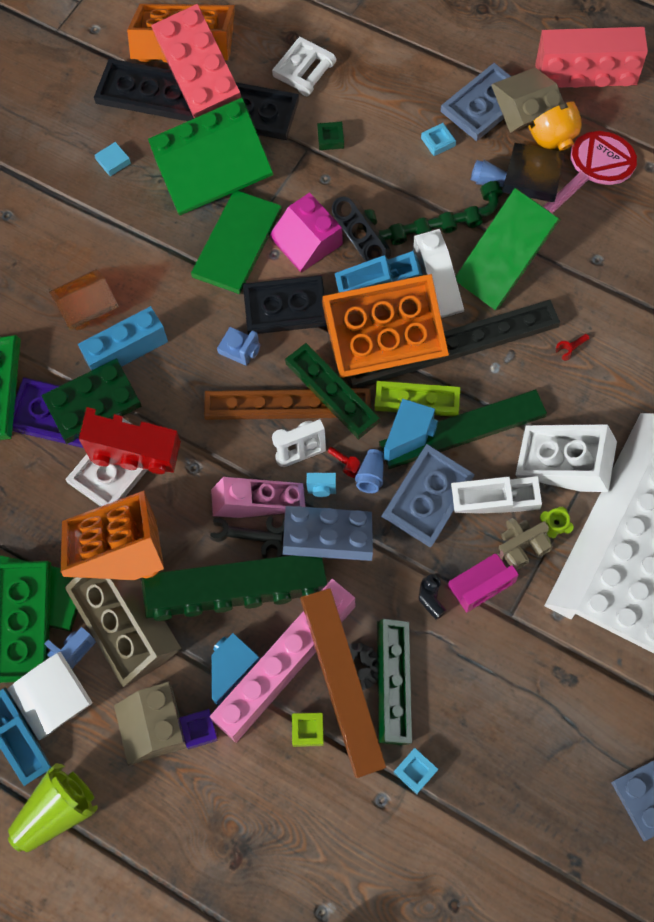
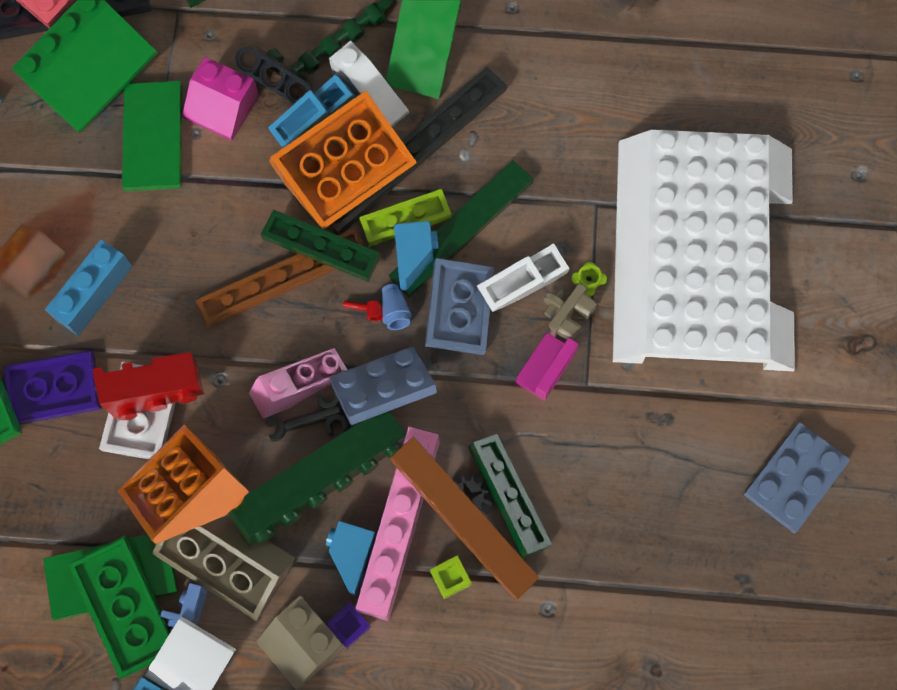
camera: 25 degrees left, 5 degrees up
(101, 389) = (89, 345): dark green plate -> none
(239, 346) = (206, 240): medium blue bracket -> none
(284, 304) = (231, 180): black tile -> none
(308, 440) = (320, 305): white plate -> none
(321, 484) = (353, 341): medium azure plate -> none
(415, 771) = (567, 567): medium azure plate -> none
(428, 596) = (503, 401): black arm -> none
(568, 456) = (571, 211): white slope -> none
(570, 346) = (526, 103): red hand -> none

